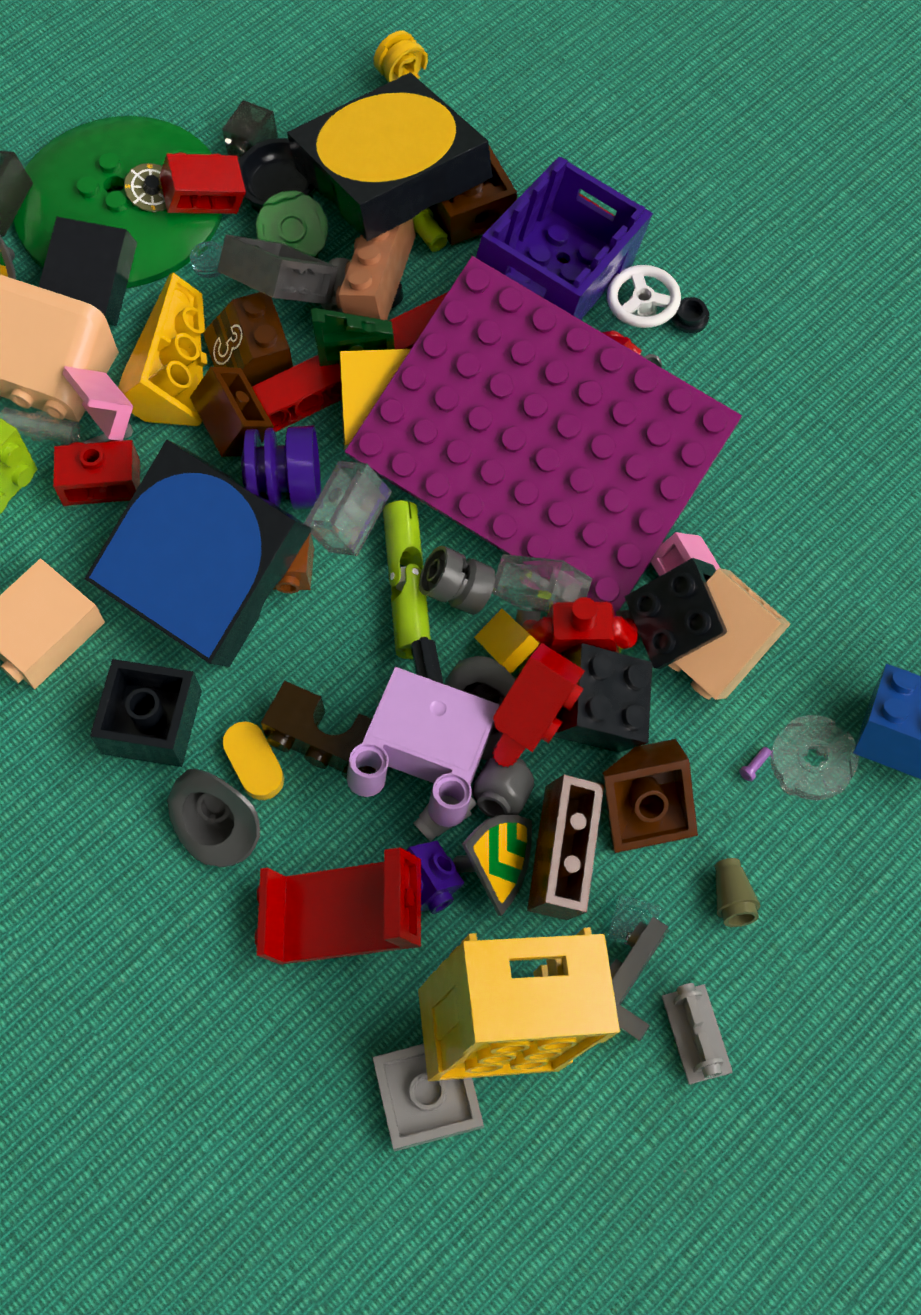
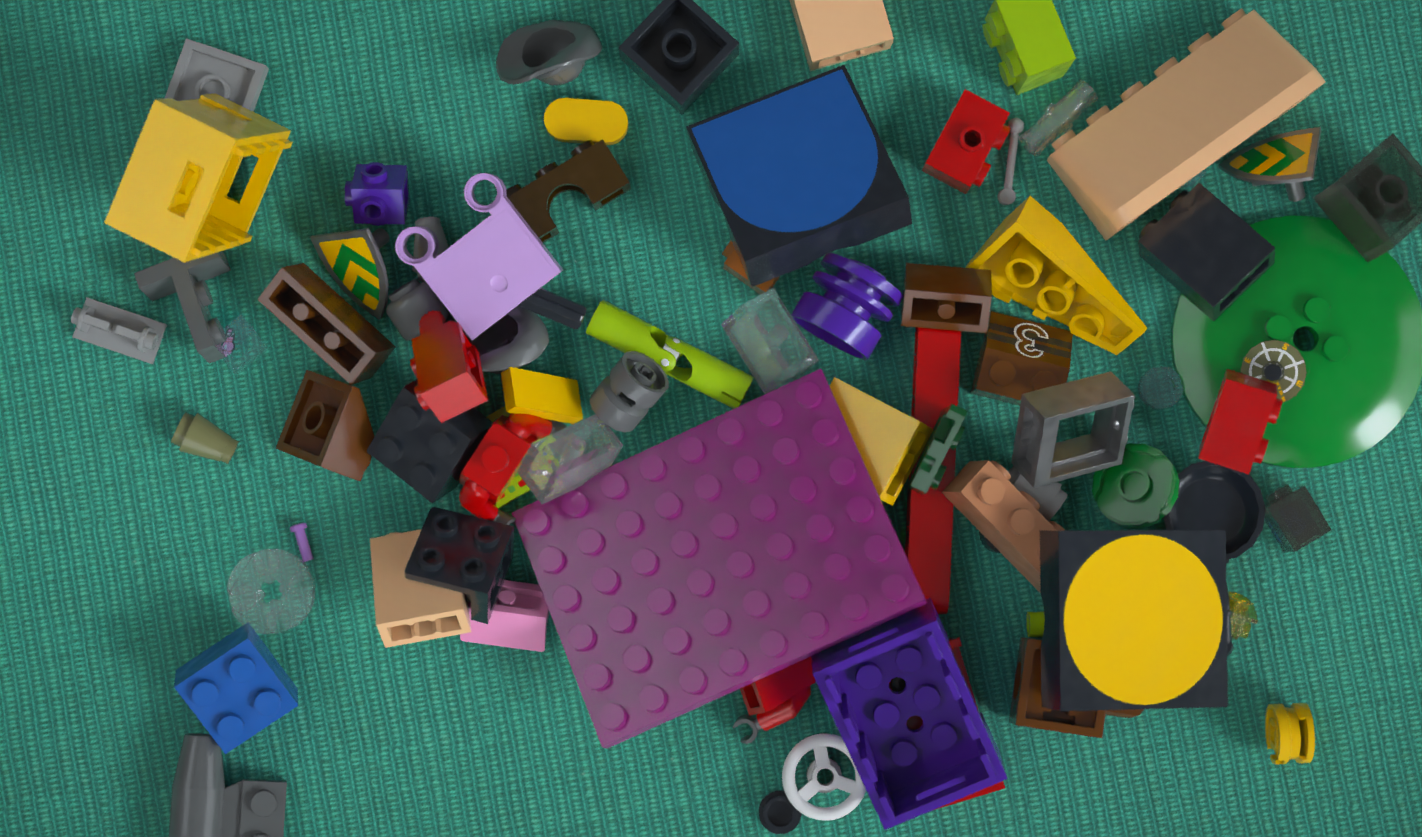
camera: 120 degrees right, 20 degrees up
(101, 400) = (1033, 179): bright pink panel -> none
(340, 910) = (394, 107): red panel -> none

